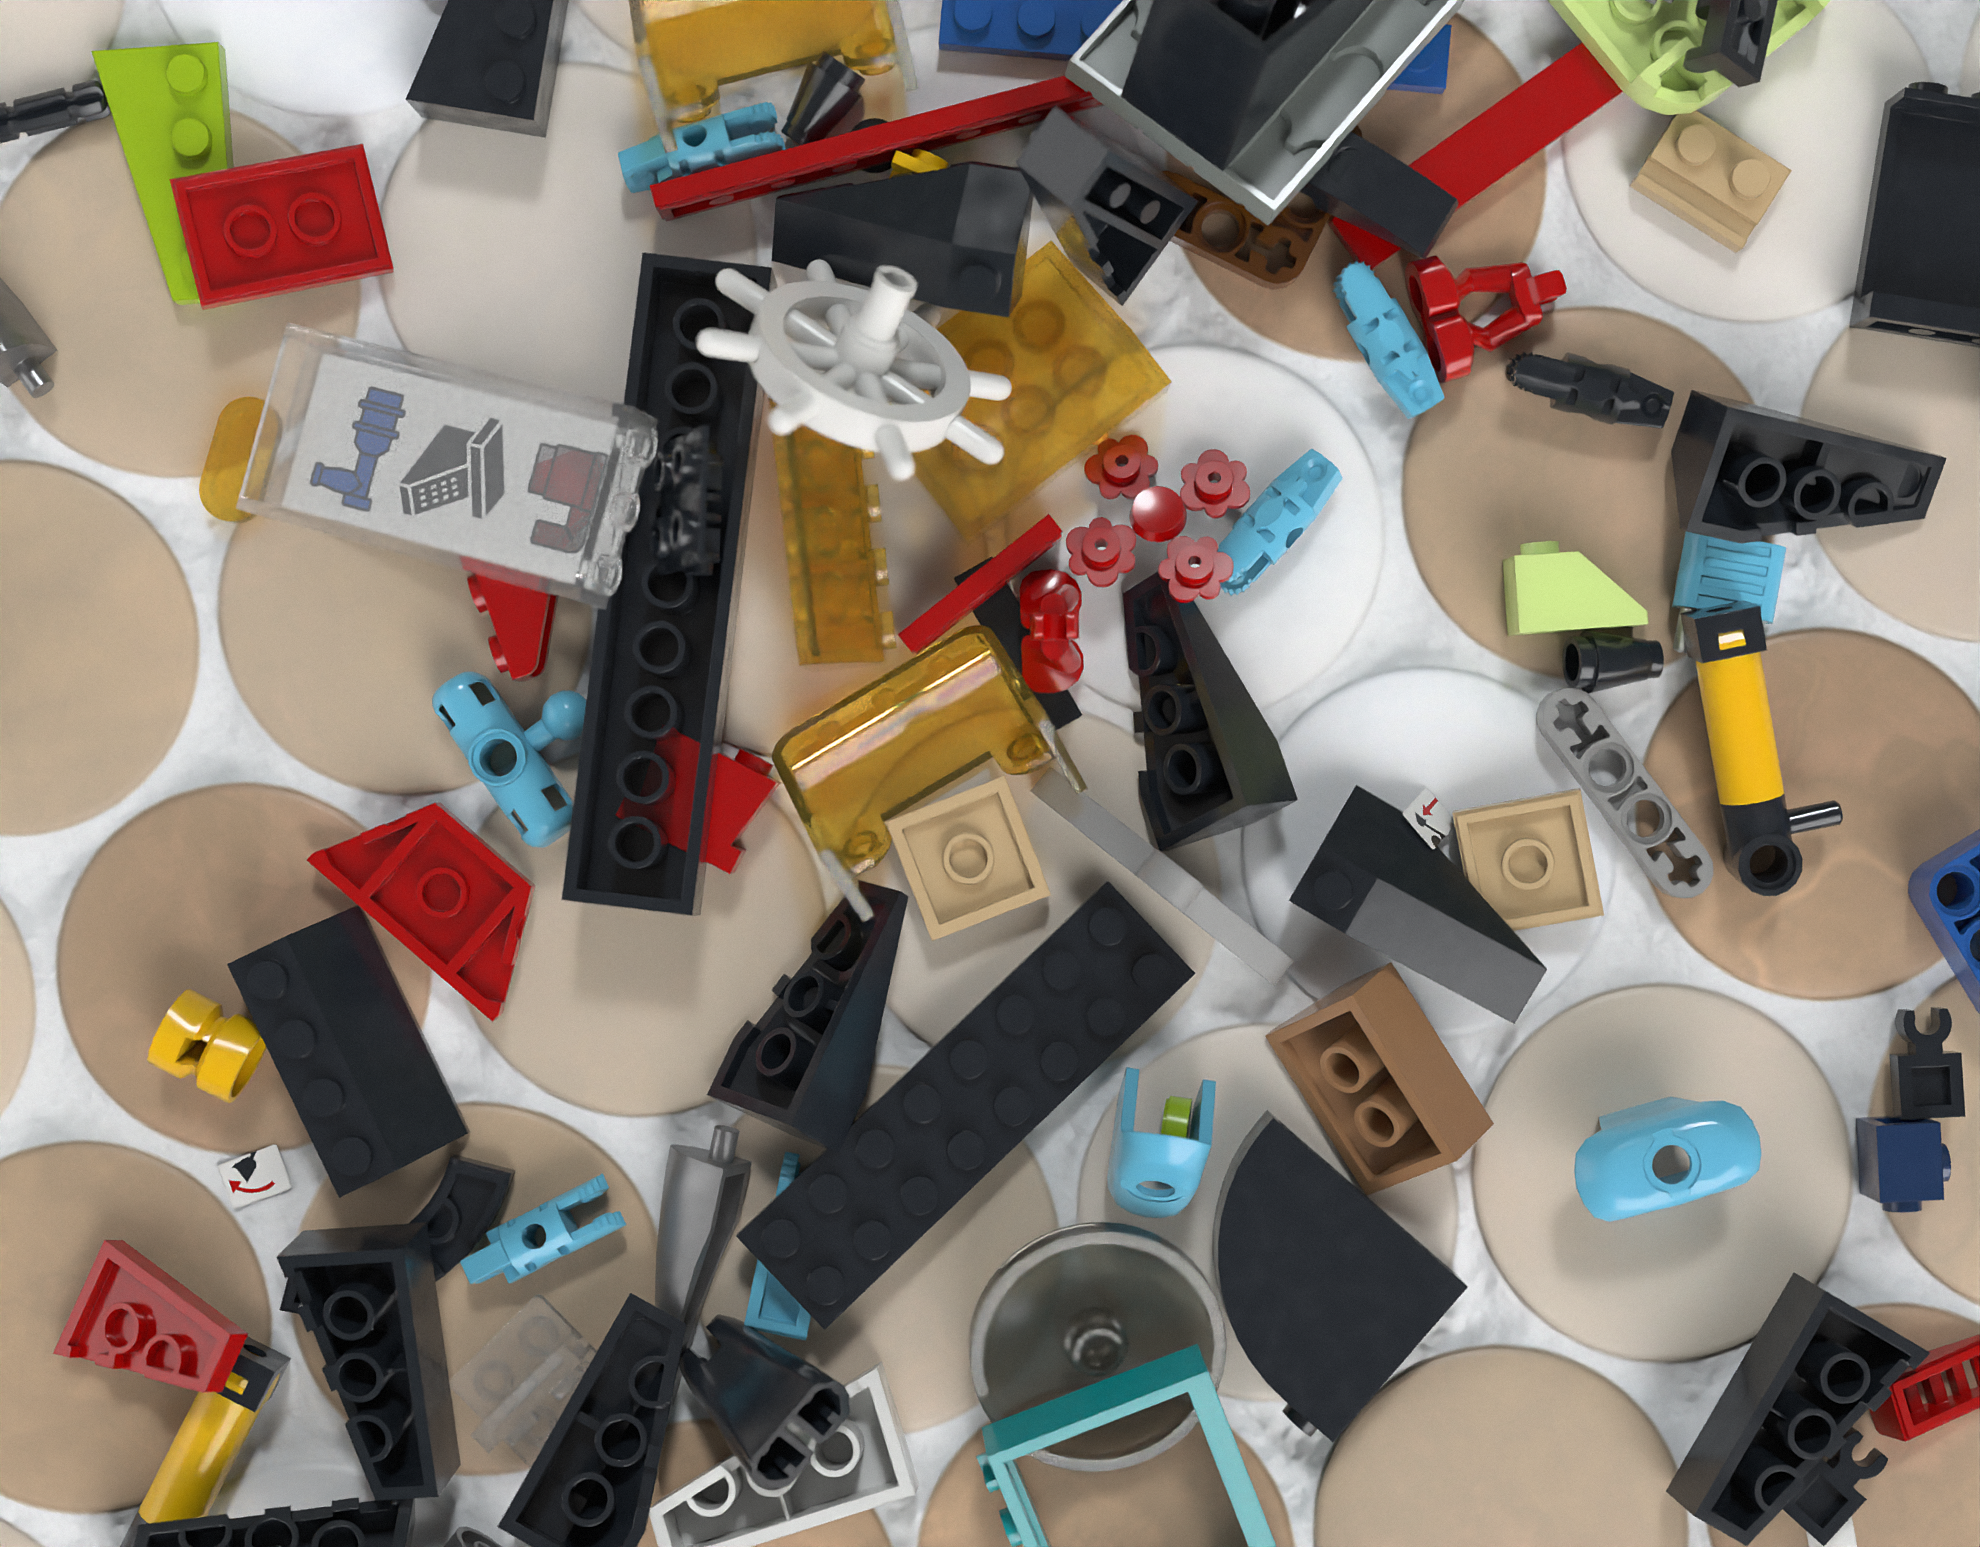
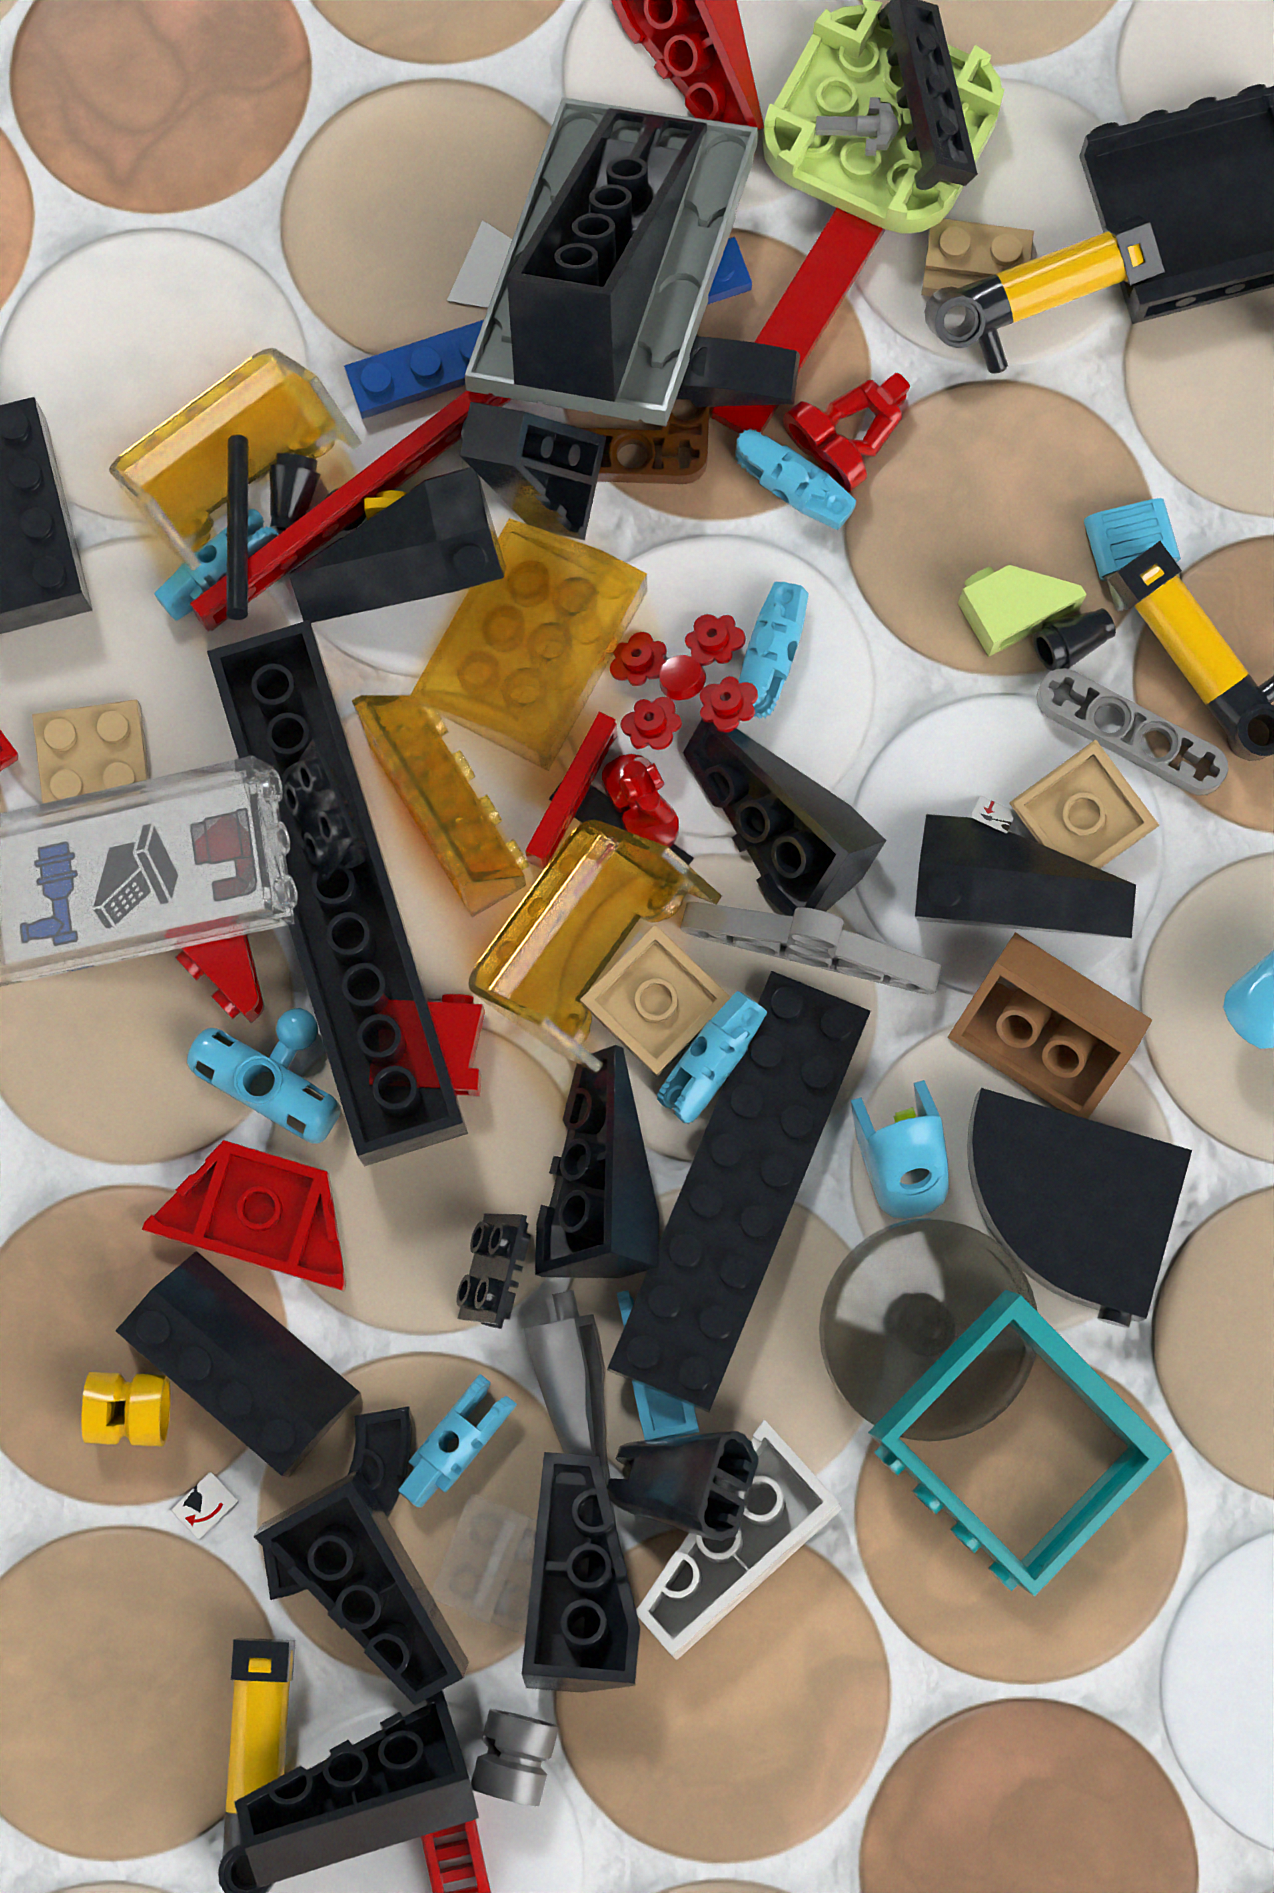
camera: 25 degrees left, 10 degrees down
(149, 1324) = (171, 1652): red wing -> none
(473, 306) = (89, 749): none -> tan plate
(647, 1091) = (496, 1247): none -> black hinge
(740, 121) = (237, 528): none -> black bar
(866, 359) = (407, 652): white piece -> none
(999, 949) = (711, 1057): none -> medium azure hinge
(1593, 389) = (963, 448): black hinge -> none
(1774, 473) = (1126, 449): black wedge -> none
(1872, 247) = (1120, 254): none -> piece

